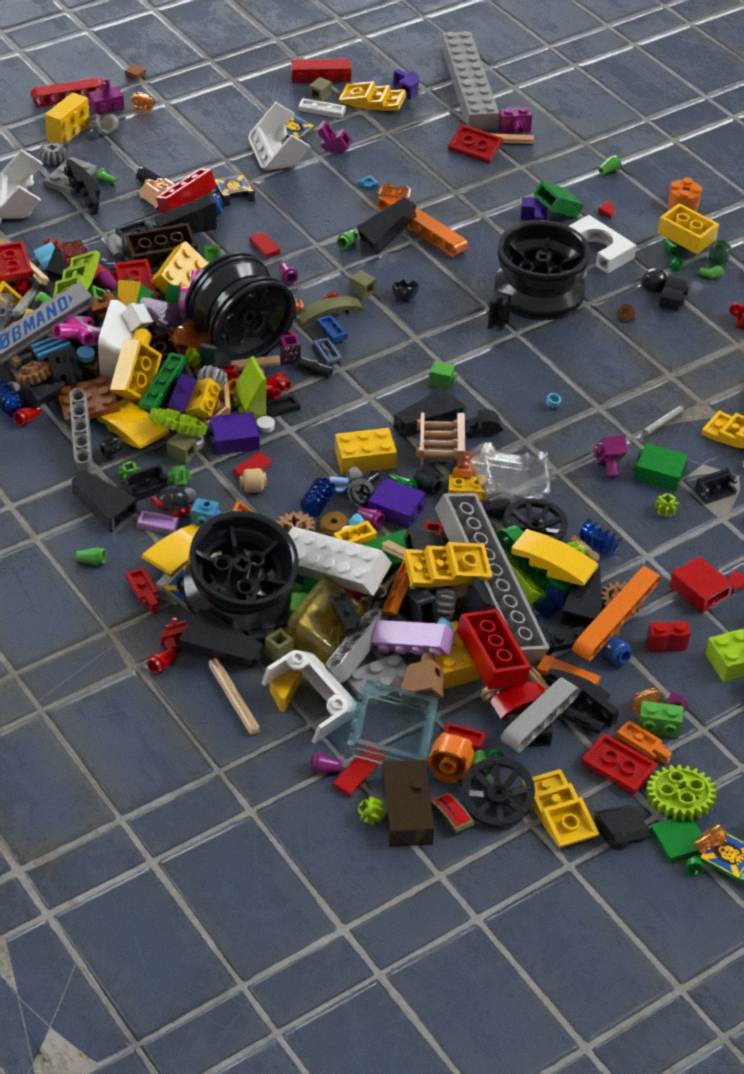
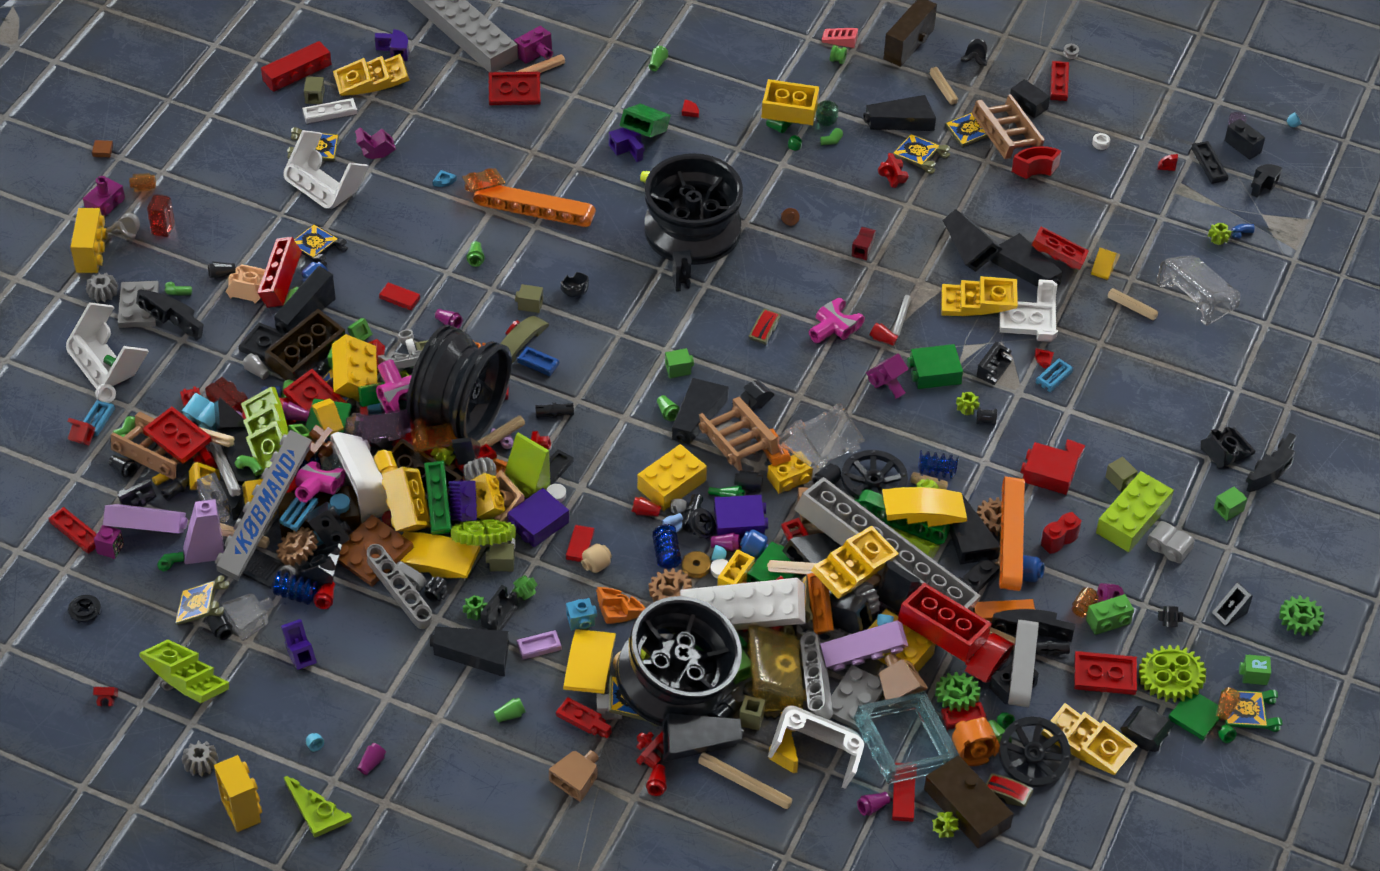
camera: 30 degrees left, 5 degrees up
(44, 96) = (54, 205): red beam -> none
(99, 428) = (412, 575): none -> light grey beam
(101, 624) = (575, 773): none -> medium nougat torso
(132, 123) = (161, 215): none -> clear red brick
(136, 316) = (368, 441): white brick -> none
(175, 500) = (543, 614): black hair -> none
(290, 348) = (520, 401): brick -> none
(324, 352) = (549, 388): sand blue tile -> none
(325, 462) = (645, 507): none -> red cone
(345, 613) = (794, 652): black hinge -> none
(387, 224) = (505, 223): black slope -> none
(390, 524) = (754, 543): none -> blue head
(405, 401) = (668, 408): none -> bright green cone
(471, 714) = (957, 691): none -> bright green gear
(487, 694) = (956, 664): tan plate -> none
(540, 377) = (764, 326): none -> slope
(550, 601) = (946, 549): clear blue bracket -> none
(553, 396) = (798, 341): medium azure hinge -> none
(601, 400) = (835, 322): none -> dark pink connector
(619, 248) = (696, 139): white arch -> none
(634, 425) = (883, 334): none -> red cone
(644, 742) = (1110, 642): orange hinge -> none
(654, 280) = (788, 169): black hair -> none
(674, 293) = (817, 176): black brick -> none
(675, 521) = (981, 413): none -> black bush
(676, 354) = (863, 241): none -> dark red leg
(686, 193) = (752, 63): orange brick -> none
(716, 746) = (1170, 616): none -> black gear

